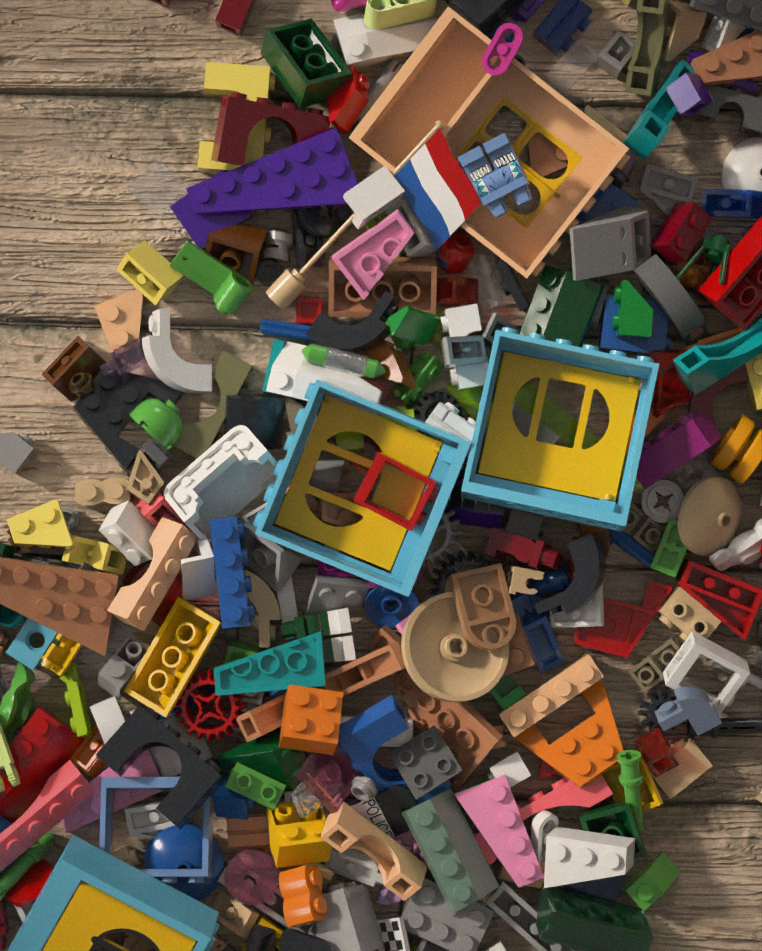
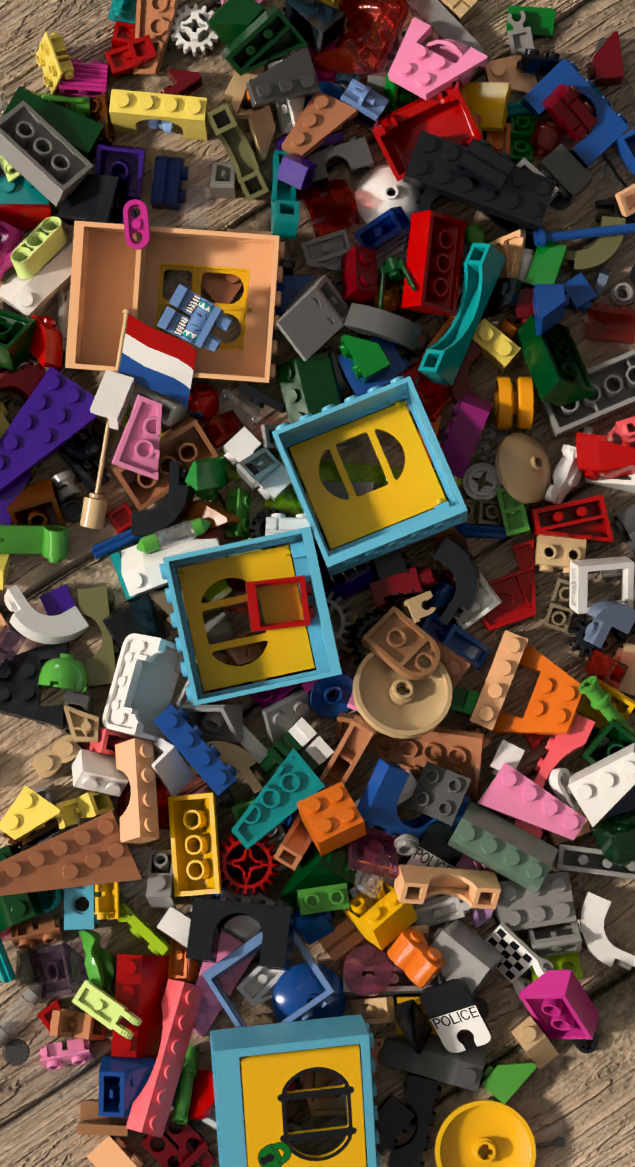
camera: 35 degrees left, 5 degrees down
(198, 349) = (57, 600): none -> dark purple panel
(698, 148) = (330, 207): none -> clear red slope

